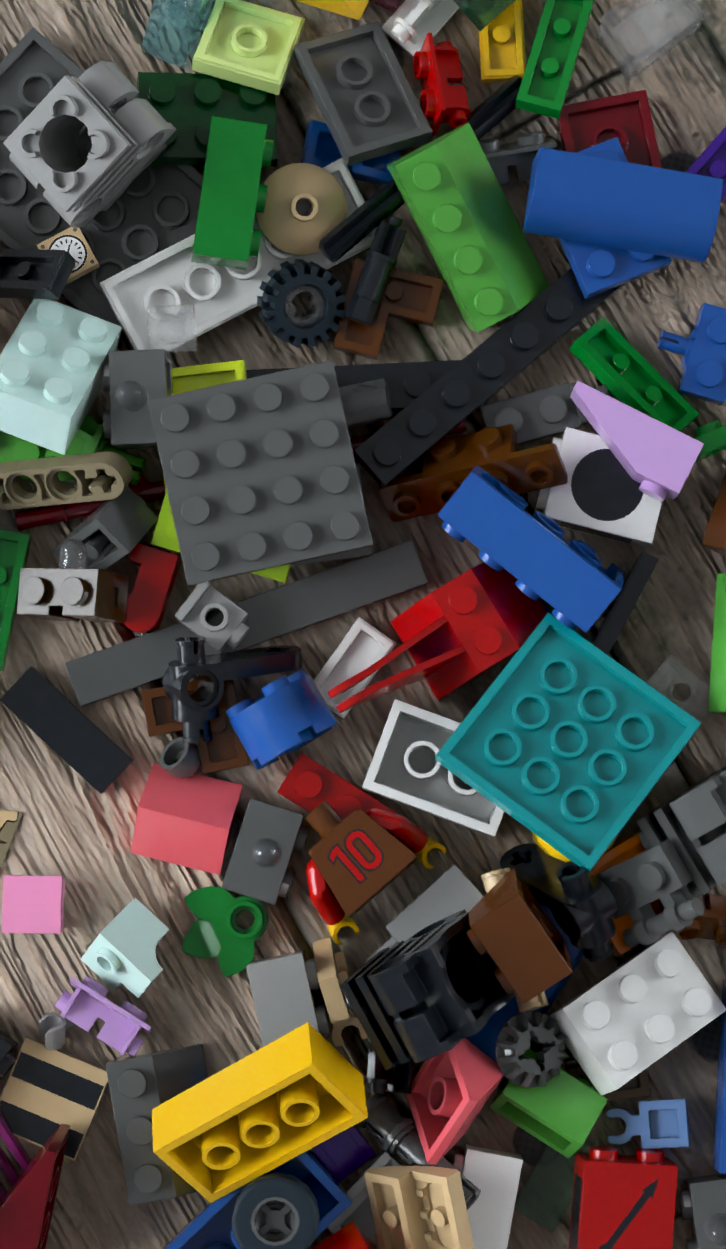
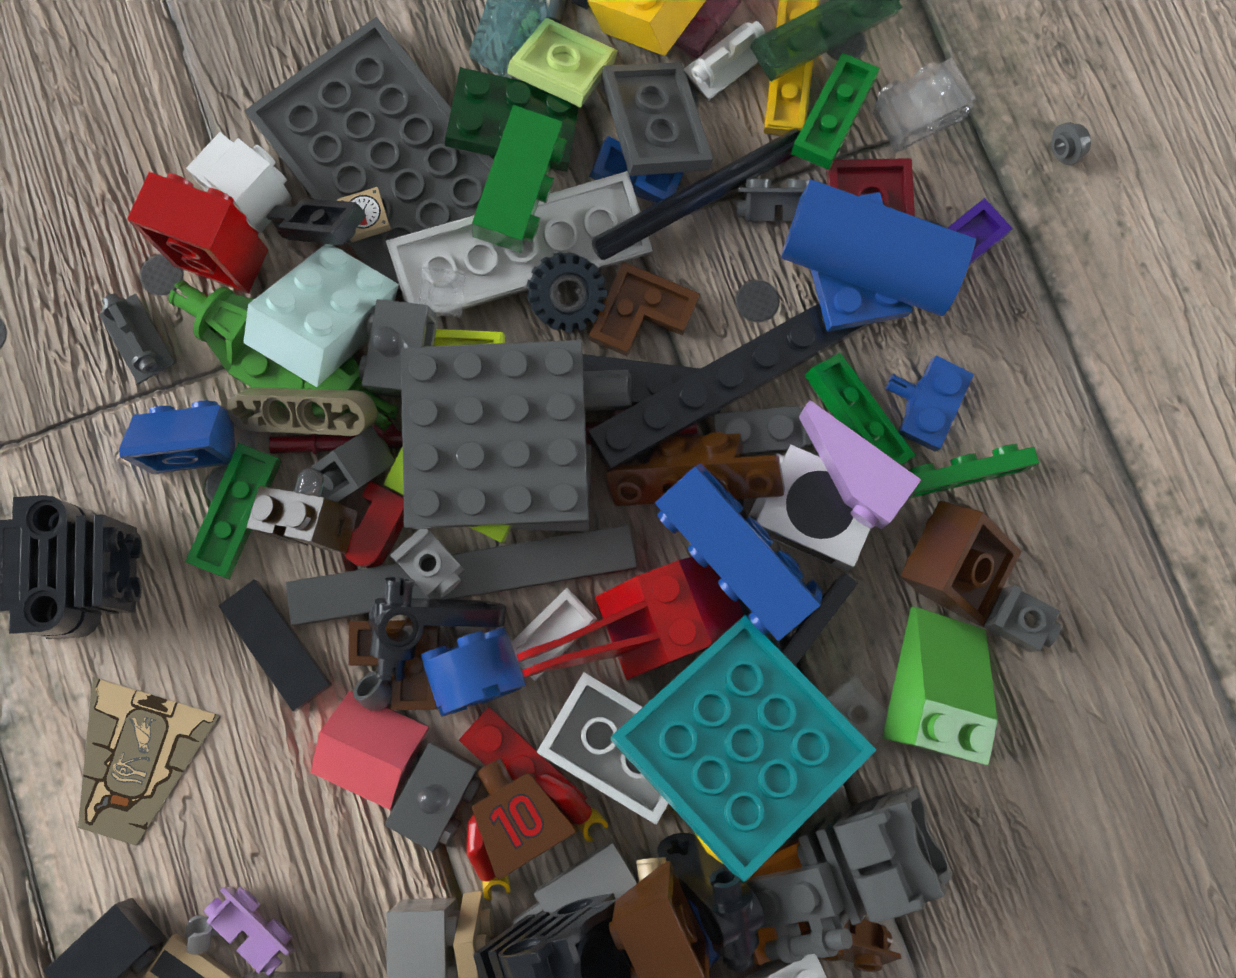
camera: 10 degrees right, 5 degrees down
(33, 904) = (206, 807): bright pink piece -> none
(123, 133) = (395, 108): light grey piece -> none
(127, 949) = (282, 867): light aqua brick -> none
(217, 928) = (378, 865): green plate -> none
(281, 221) = (577, 228): tan dish -> none
(376, 271) = (639, 274): black piece -> none
(435, 69) = (725, 110): red hinge -> none
(469, 228) = (730, 248): bright green slope -> none

